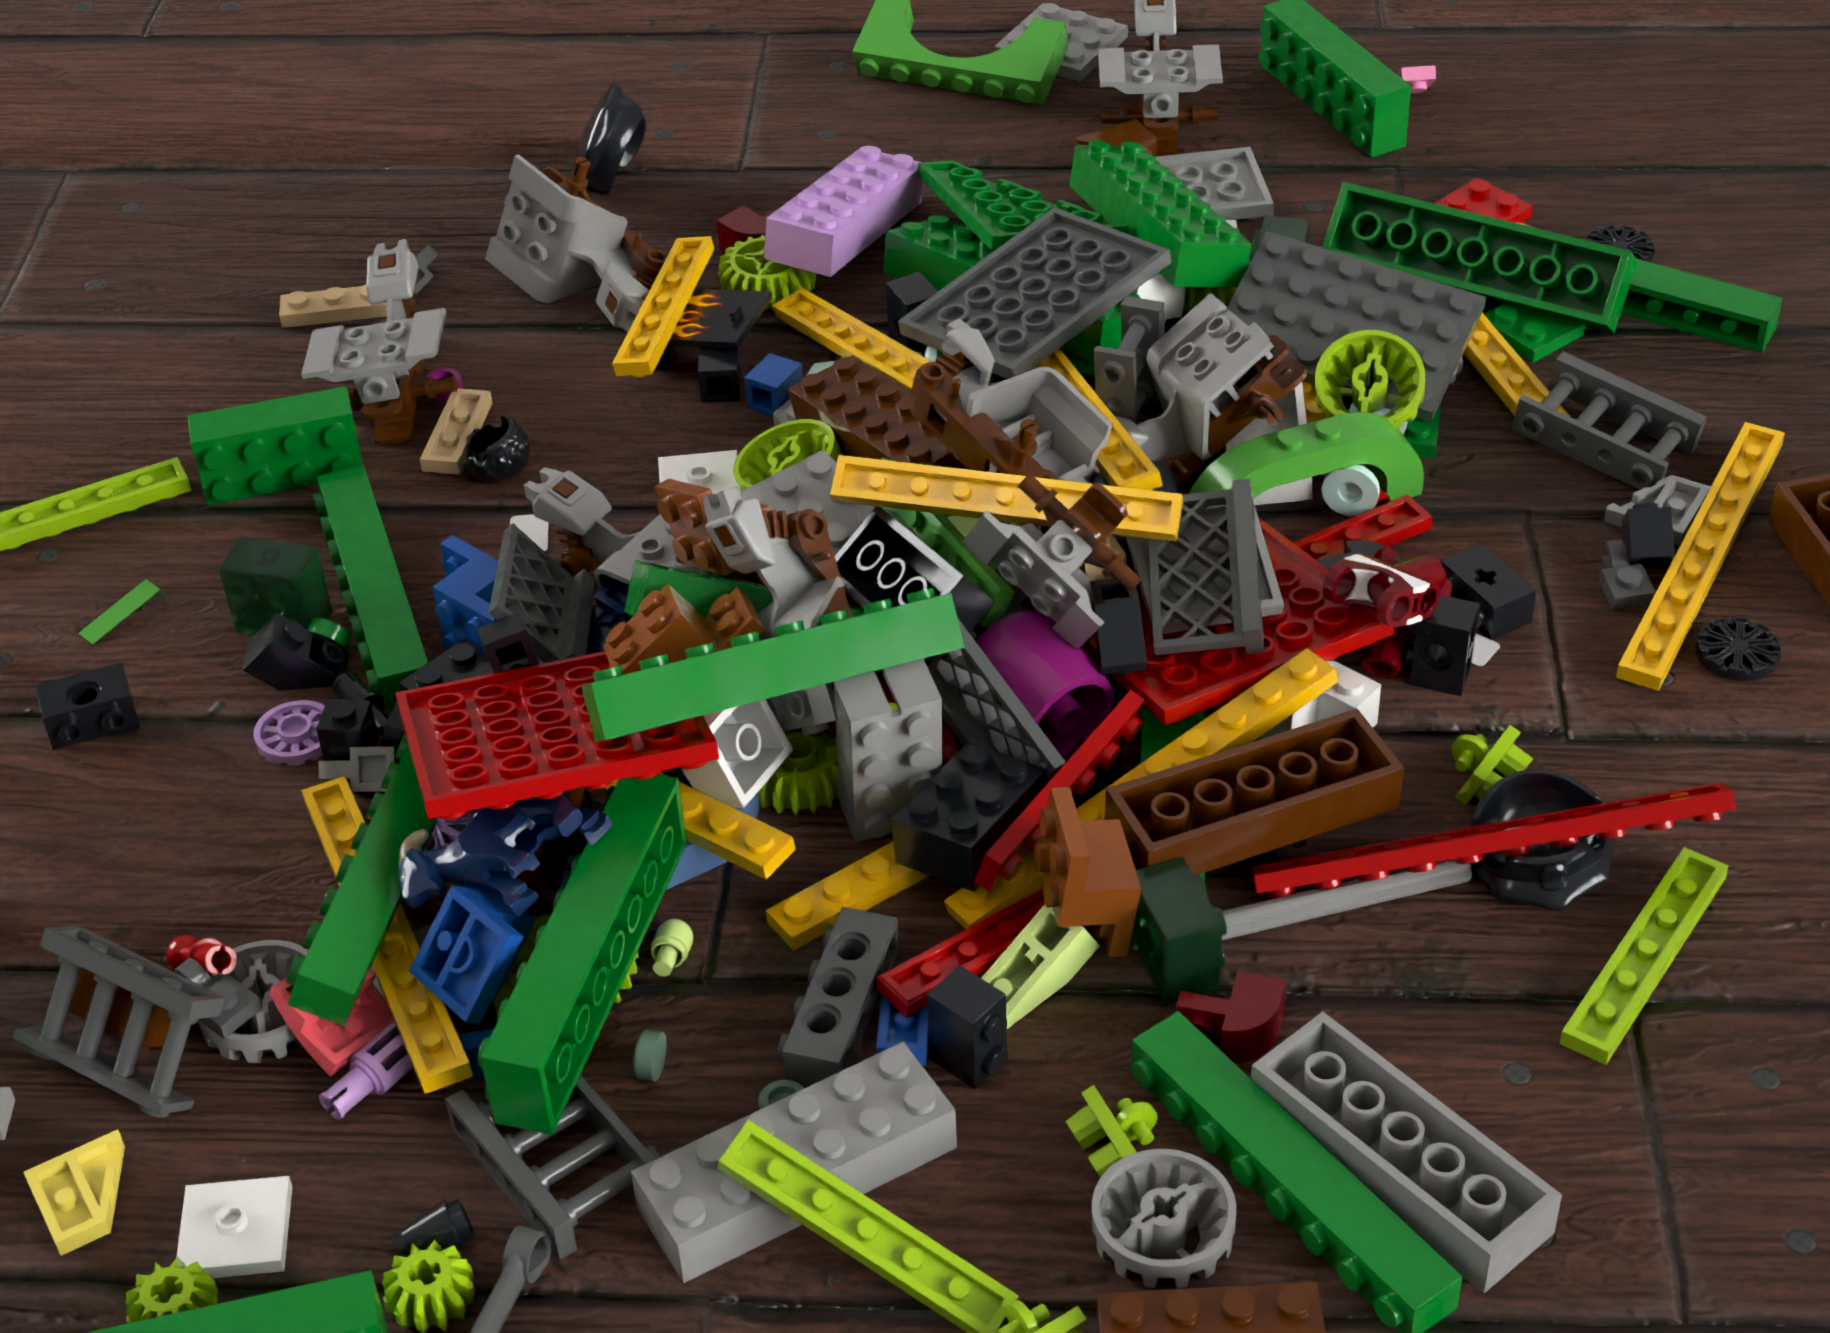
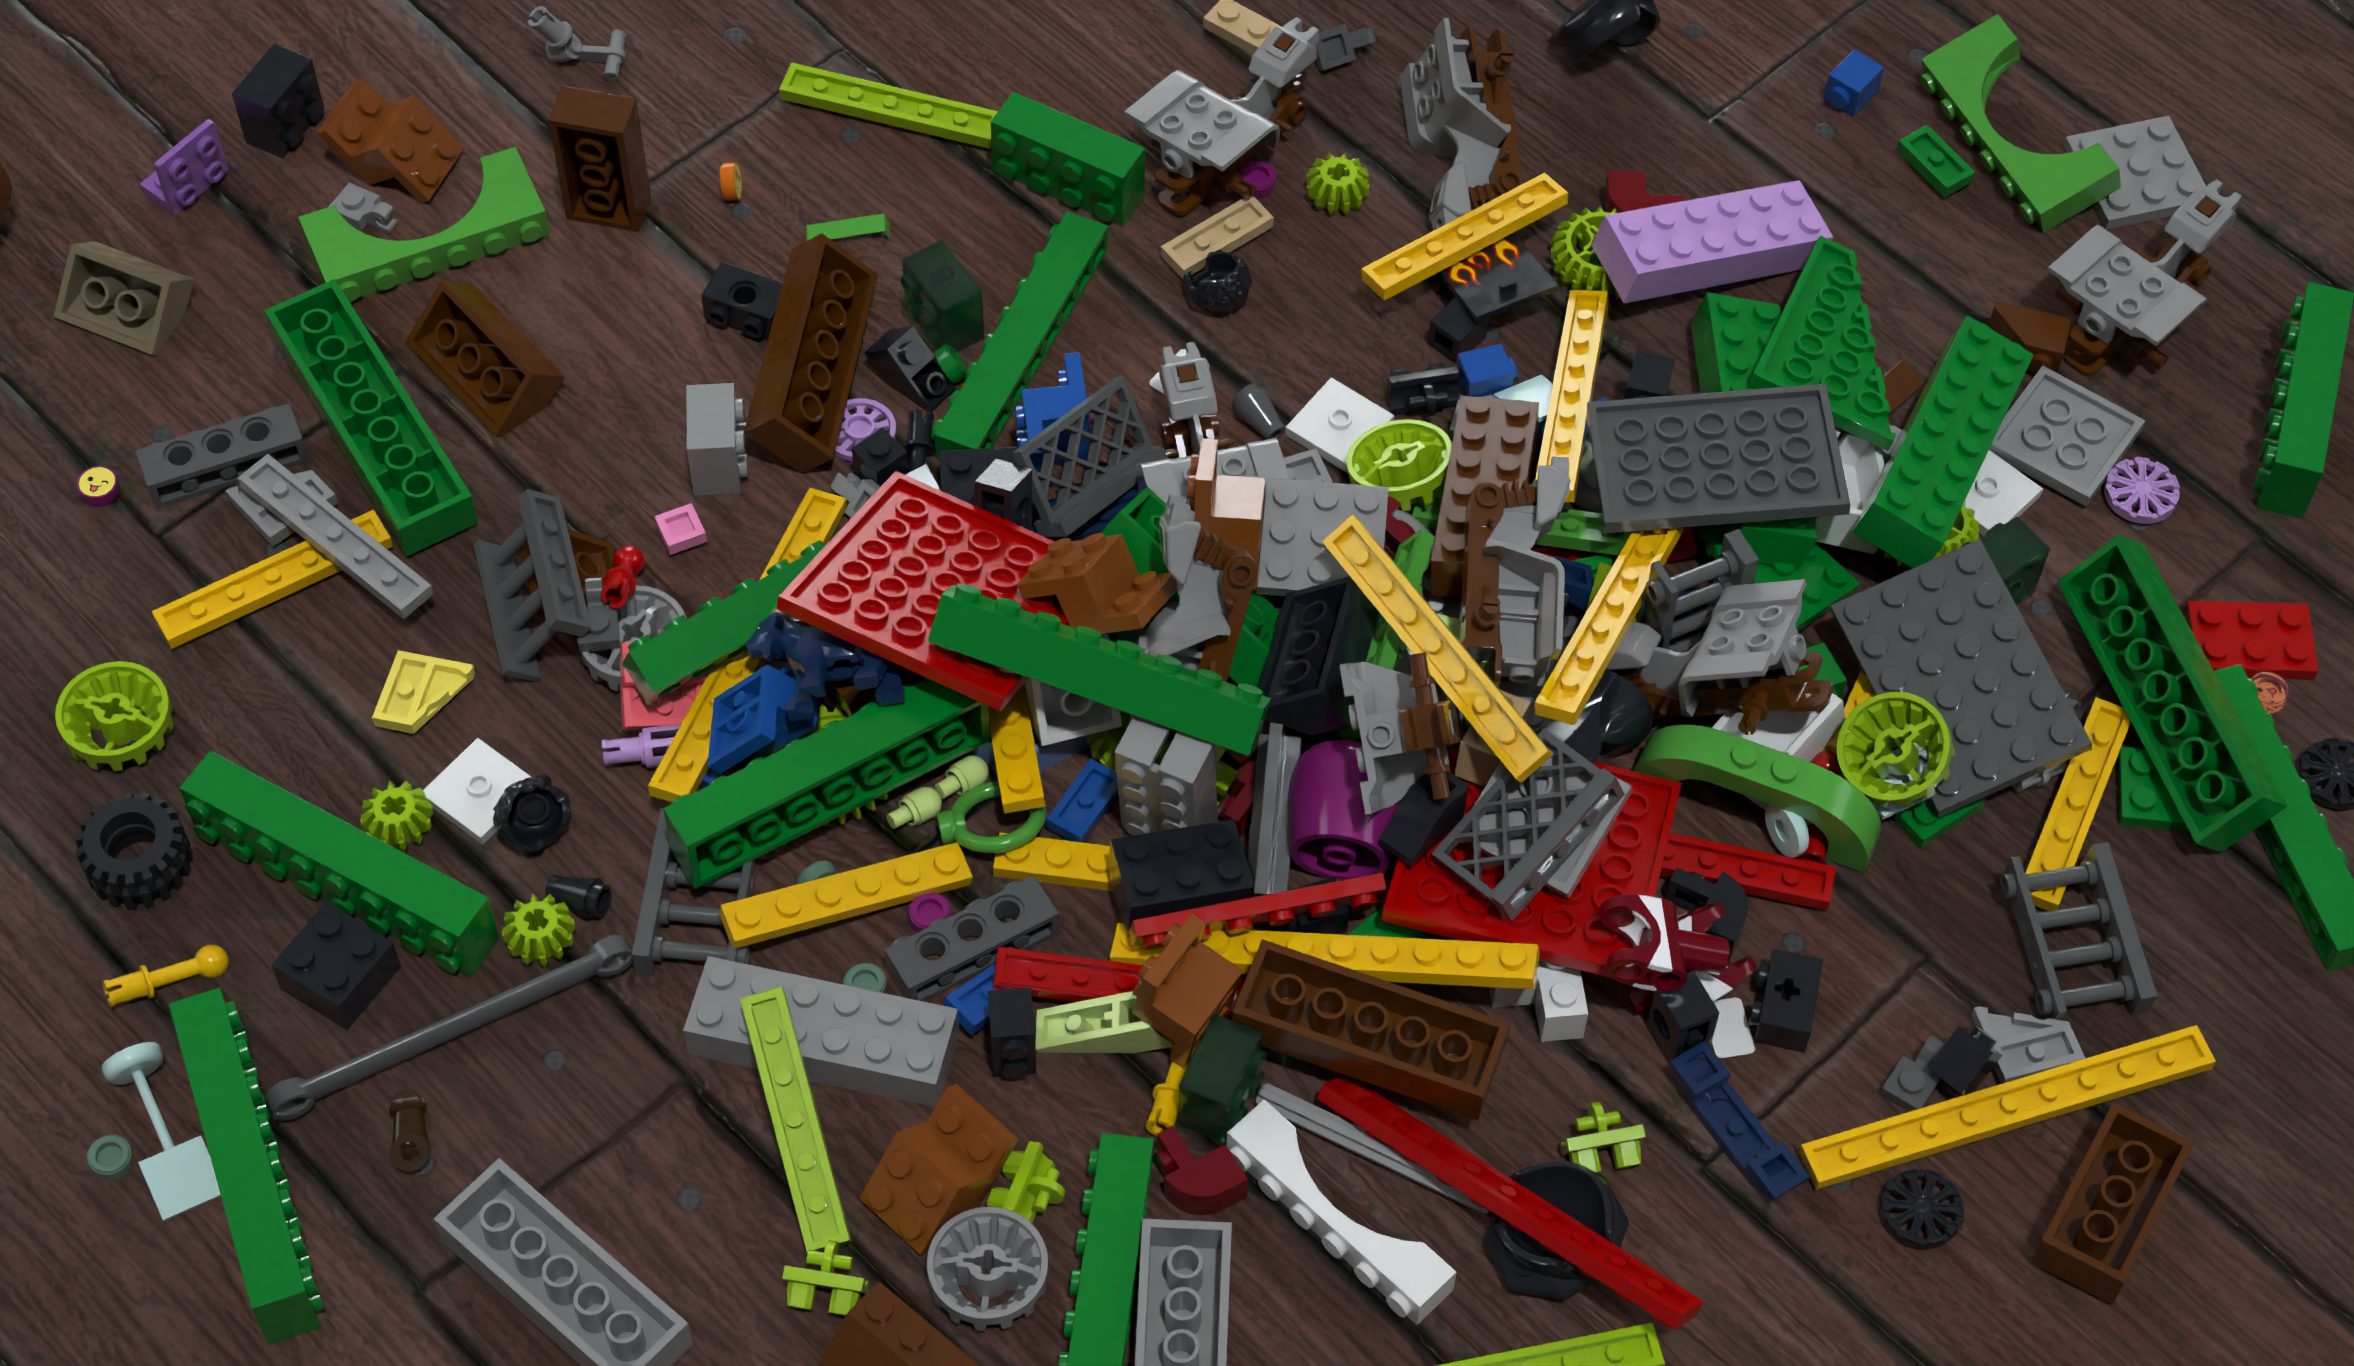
camera: 40 degrees right, 15 degrees up
(175, 805) = (715, 439): none -> light grey brick
(200, 695) = (811, 354): none -> reddish brown brick
(209, 898) = (680, 529): none -> bright pink plate
(317, 1198) = (531, 813): none -> black hair
(515, 346) = (1337, 184): none -> lime gear
(629, 510) = (1257, 410): none -> dark grey cone
(685, 894) = (963, 776): none -> yellowish green cylinder
(690, 1046) = (844, 895): none -> yellow plate
(722, 931) = (954, 829): none -> bright green piece
(739, 421) = (1423, 390): none -> black hips
(773, 1012) = (926, 909): none -> magenta tile
(814, 839) = (1084, 802): none -> blue plate
(818, 93) = (1853, 83): none -> blue brick
(928, 103) = (1935, 161): none -> green plate
(1032, 1175) = (938, 1168): none -> dark orange bracket
(1138, 983) = (1166, 1100): none -> yellow pin
(1294, 184) = (2142, 490): none -> lavender wheel
(1468, 959) = (1402, 1270): none -> white arch
(1557, 695) = (1733, 1125): none -> dark blue slope

